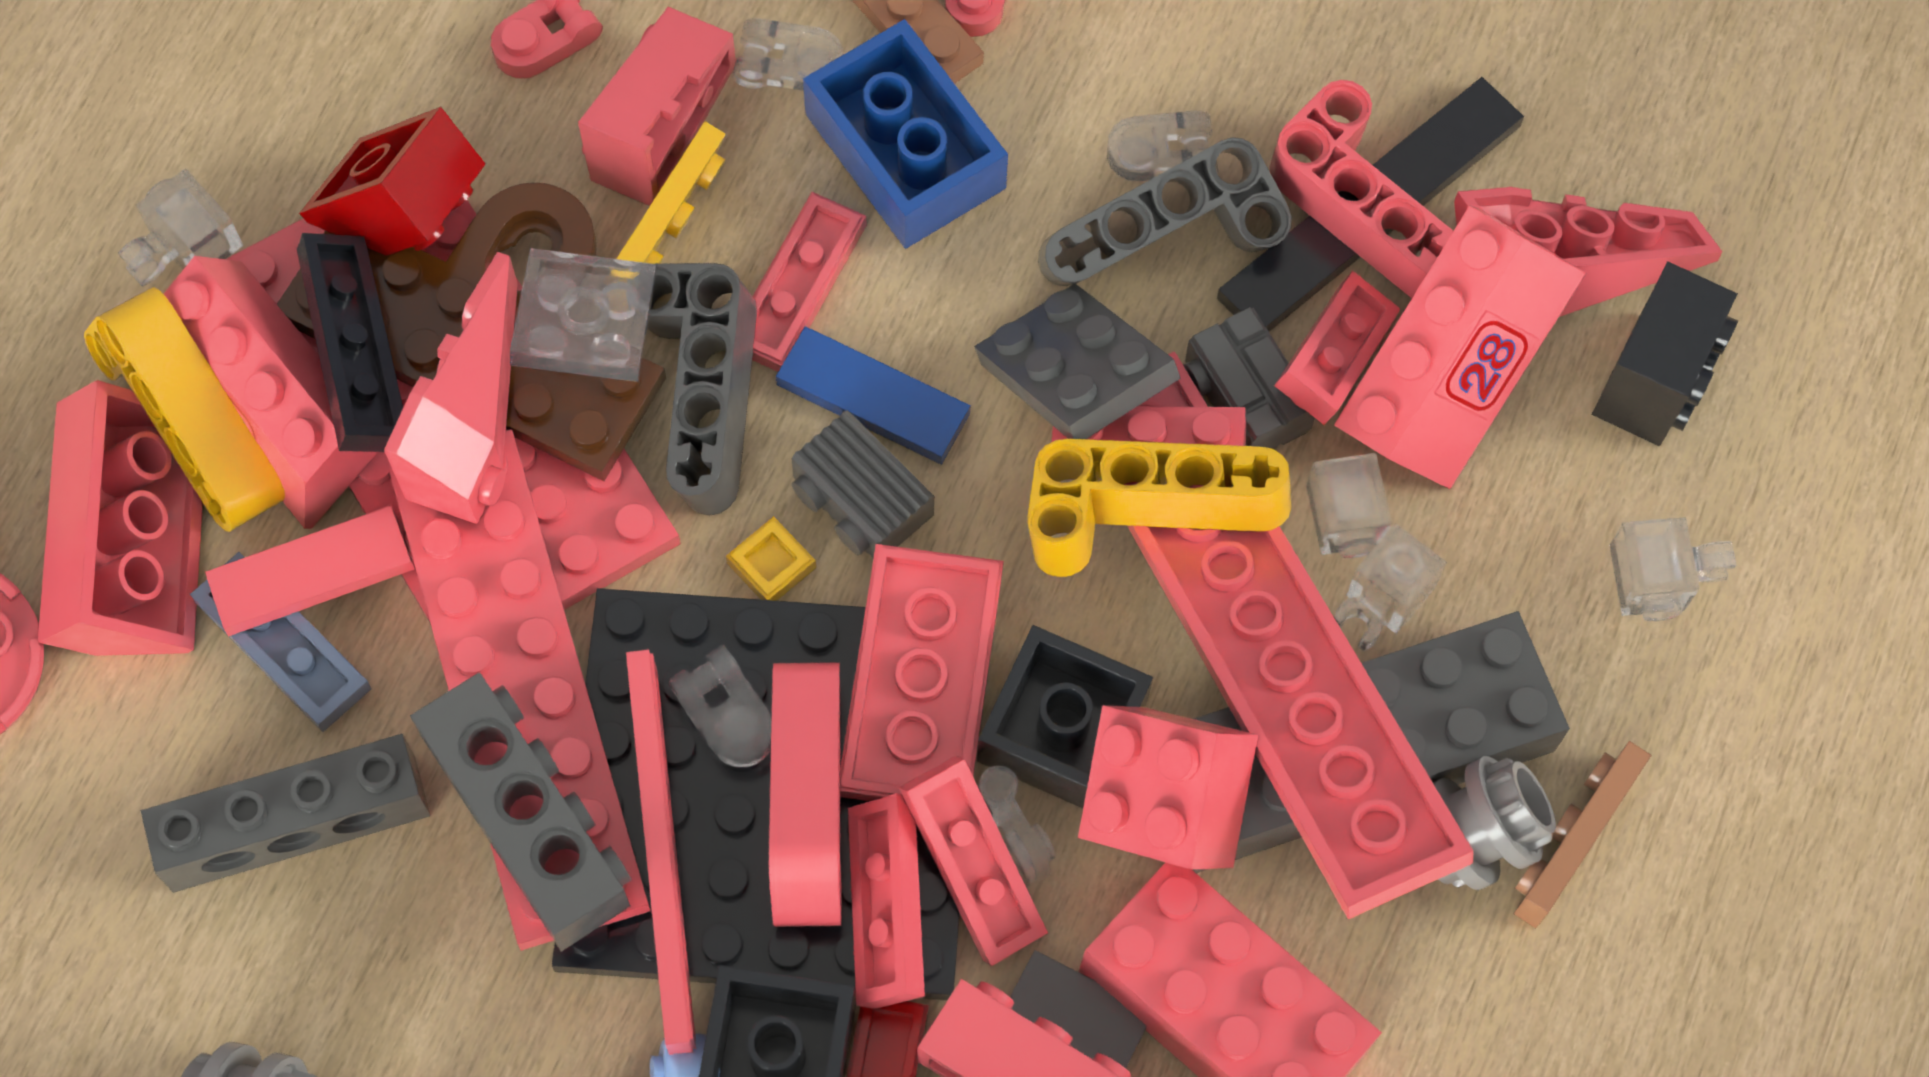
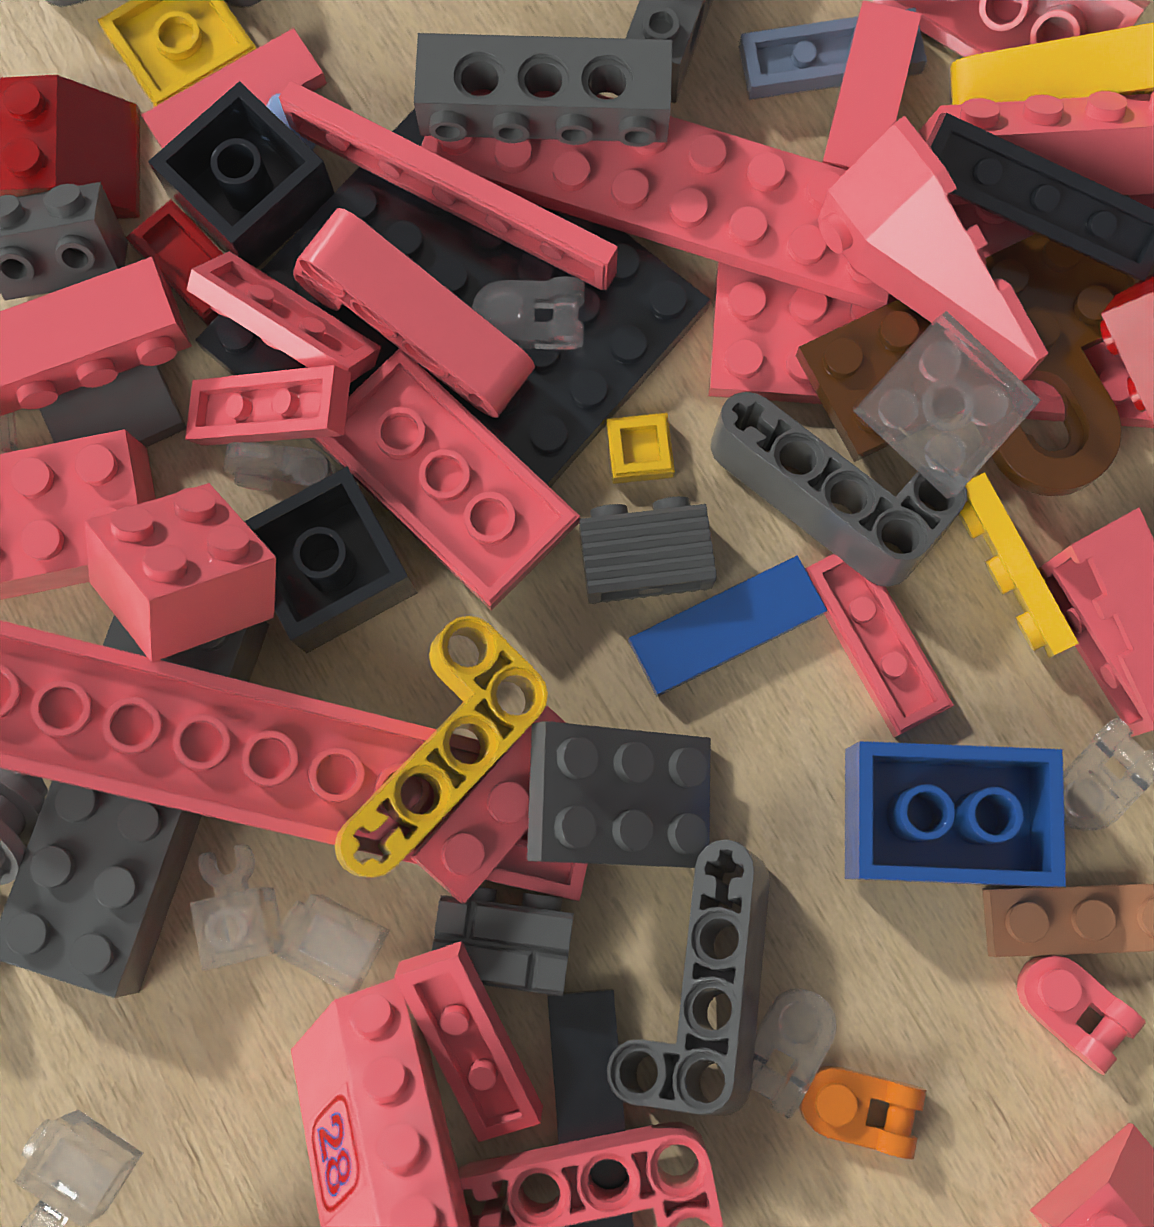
camera: 130 degrees right, 10 degrees up
(1166, 89) = (839, 1107): none -> orange plate

